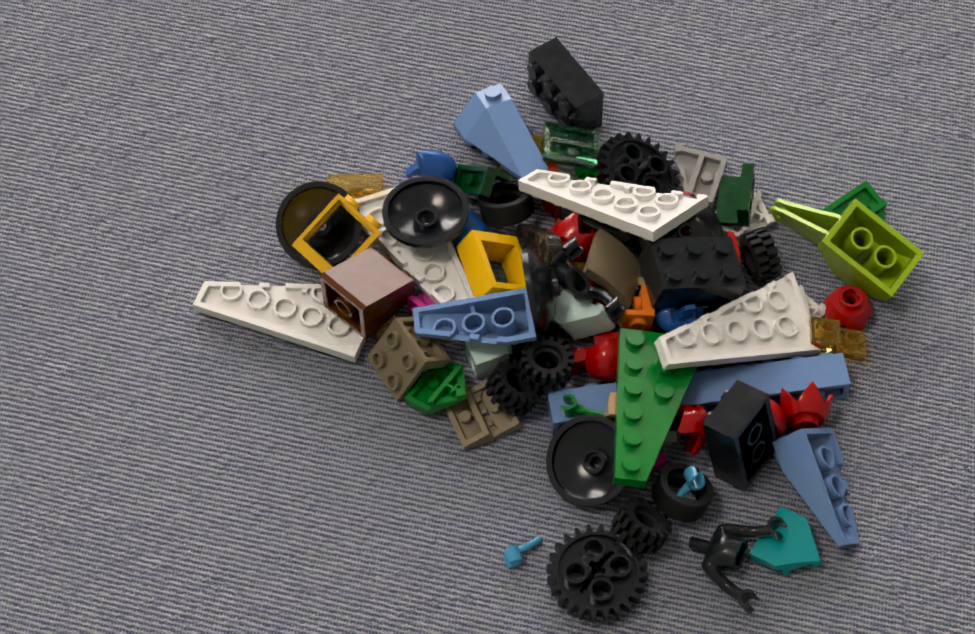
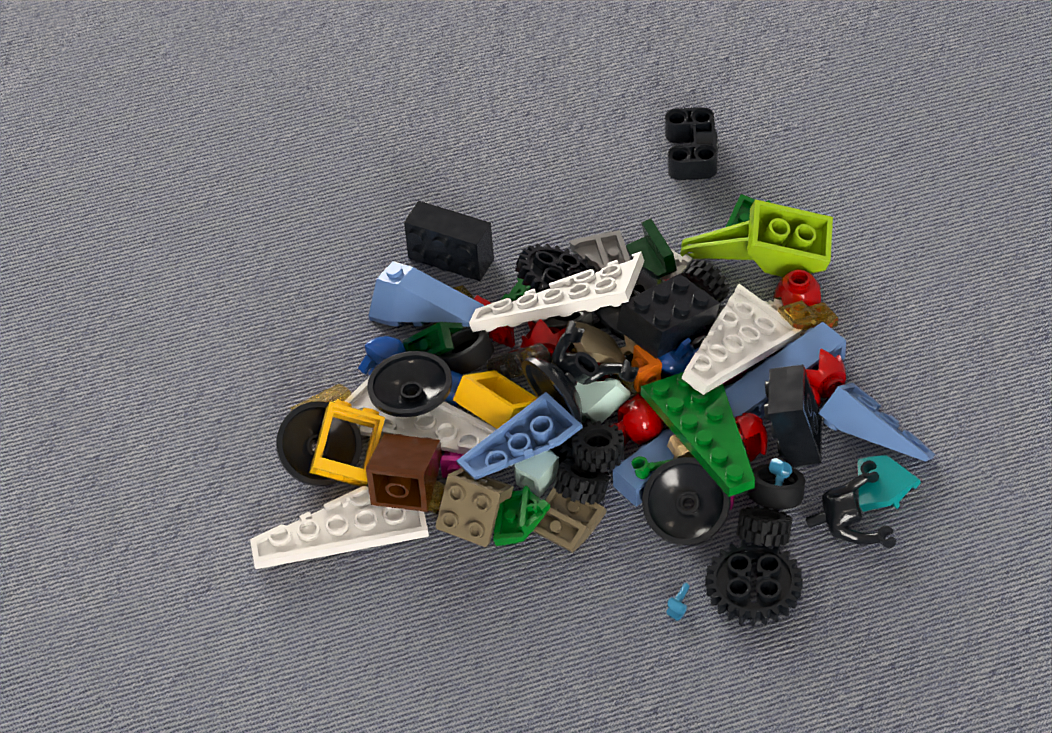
camera: 30 degrees left, 10 degrees down
(570, 145) = (487, 280): clear green slope -> none
(857, 123) = (698, 129): none -> black beam

